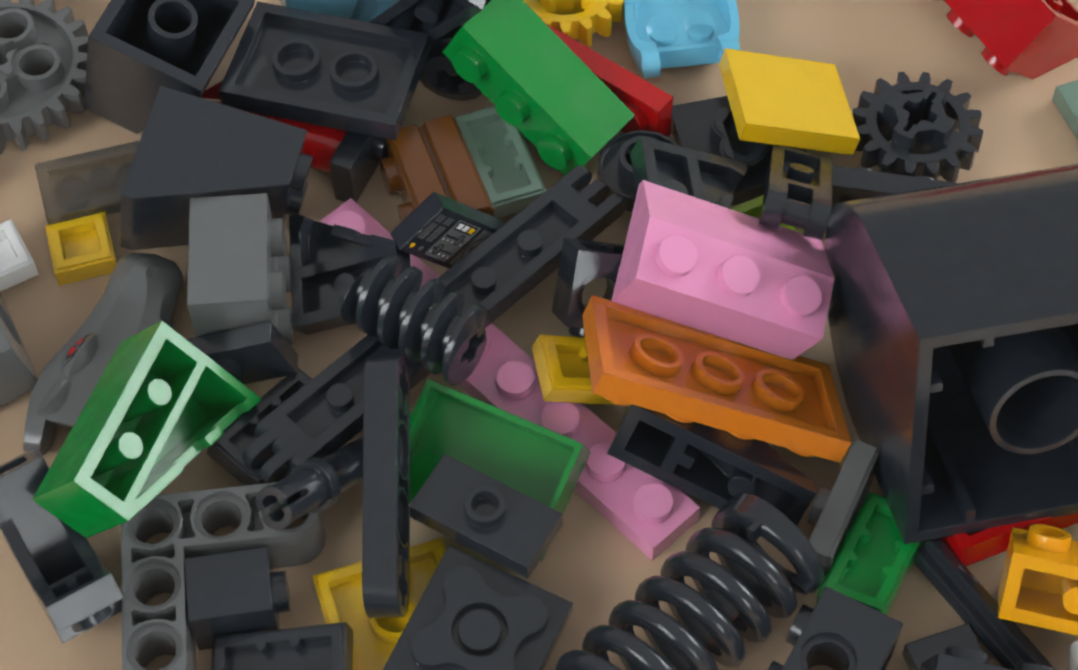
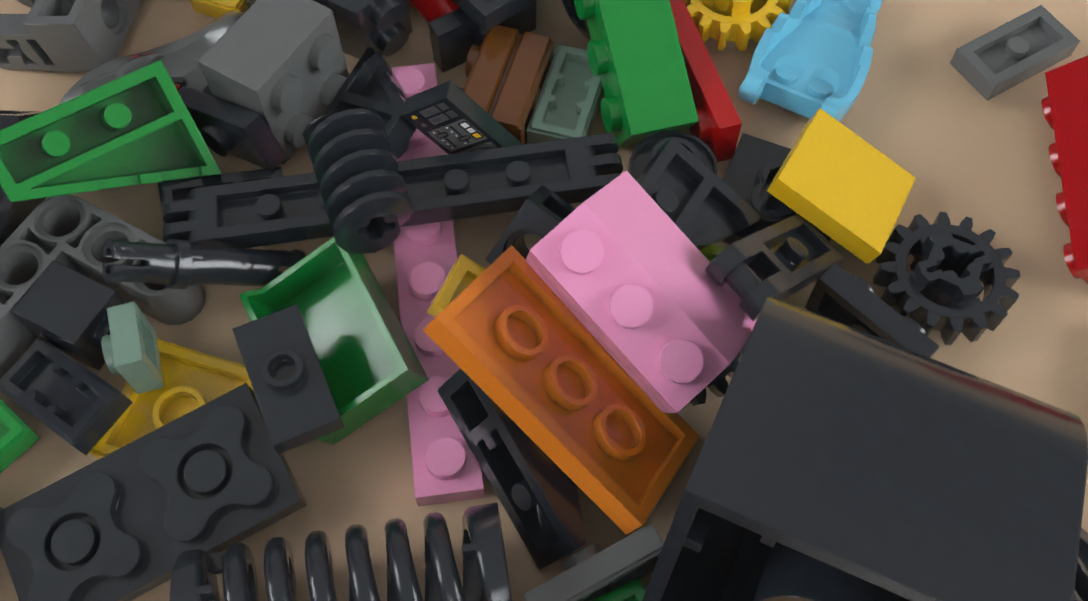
camera: 35 degrees right, 5 degrees up
(325, 581) = (132, 348): none -> sand green plate
(386, 487) = (187, 363): black beam -> none

